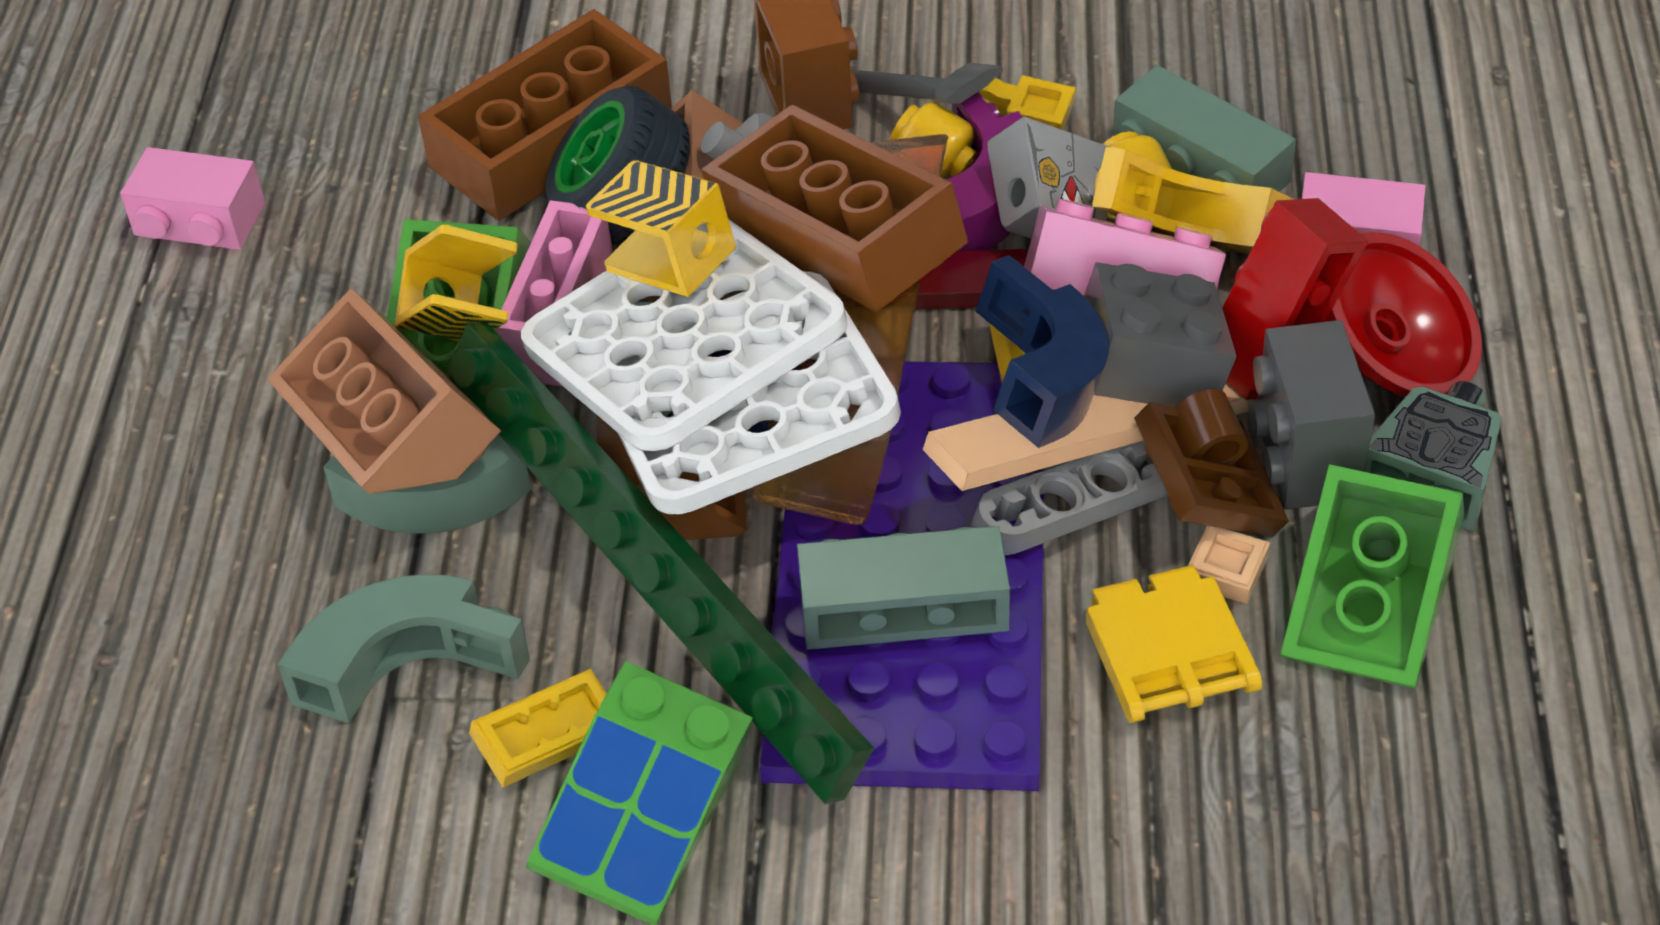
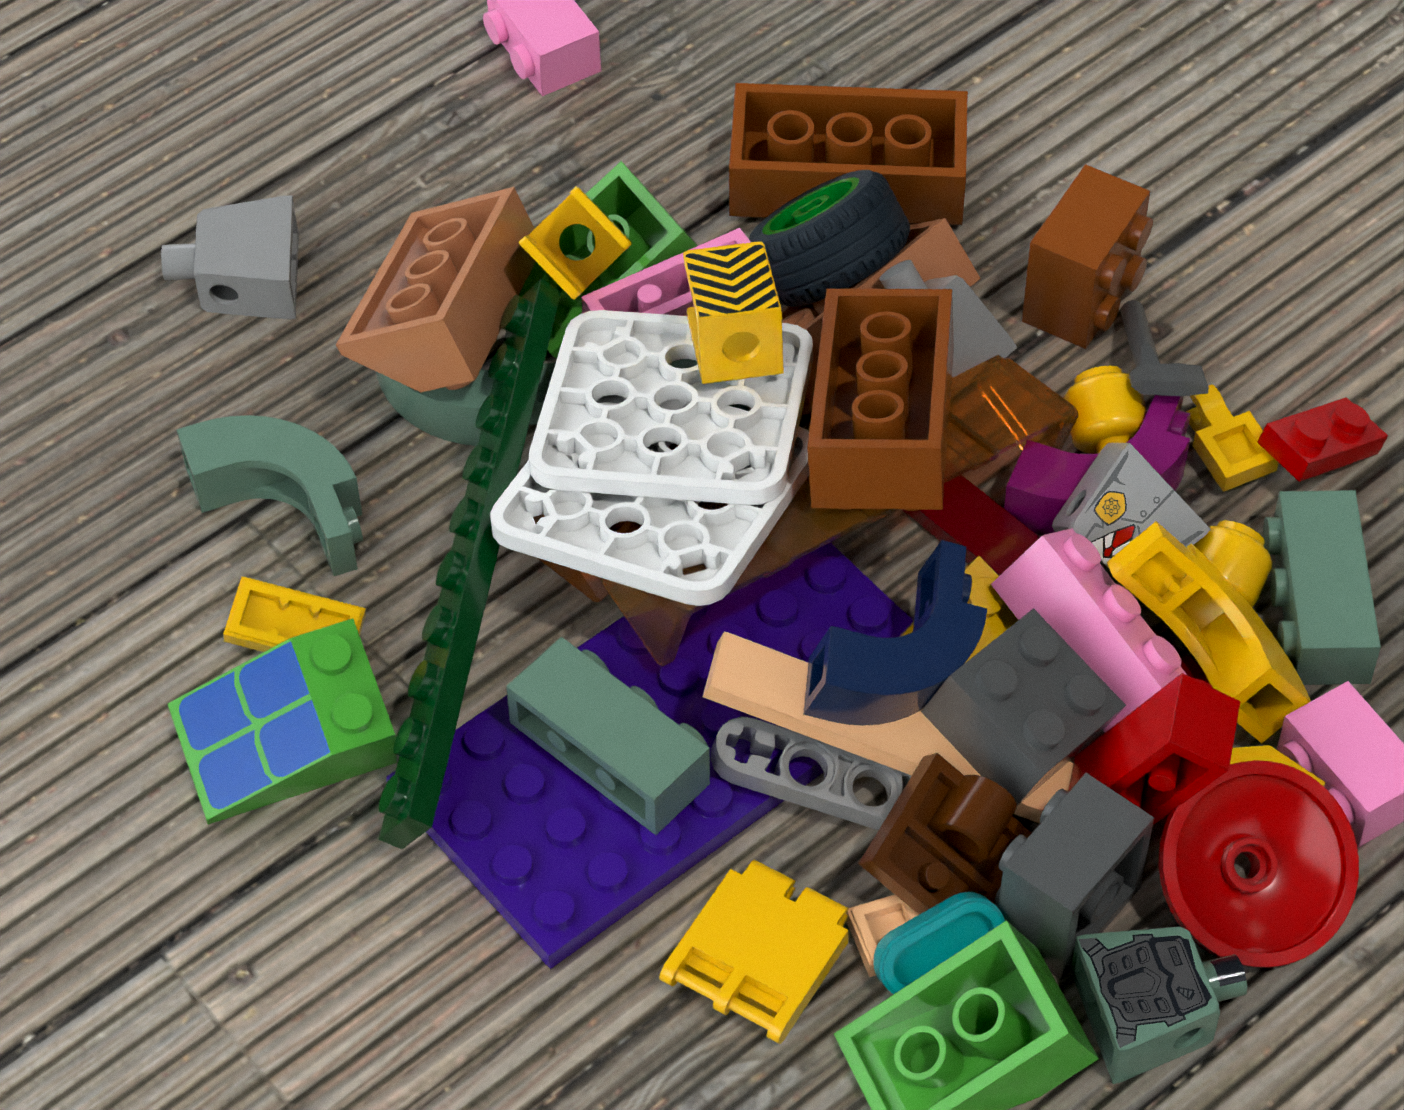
camera: 45 degrees right, 5 degrees up
(154, 519) = (242, 258): none -> light grey torso
(1084, 58) = (1322, 439): none -> red plate
(1278, 534) = (933, 938): none -> teal tile

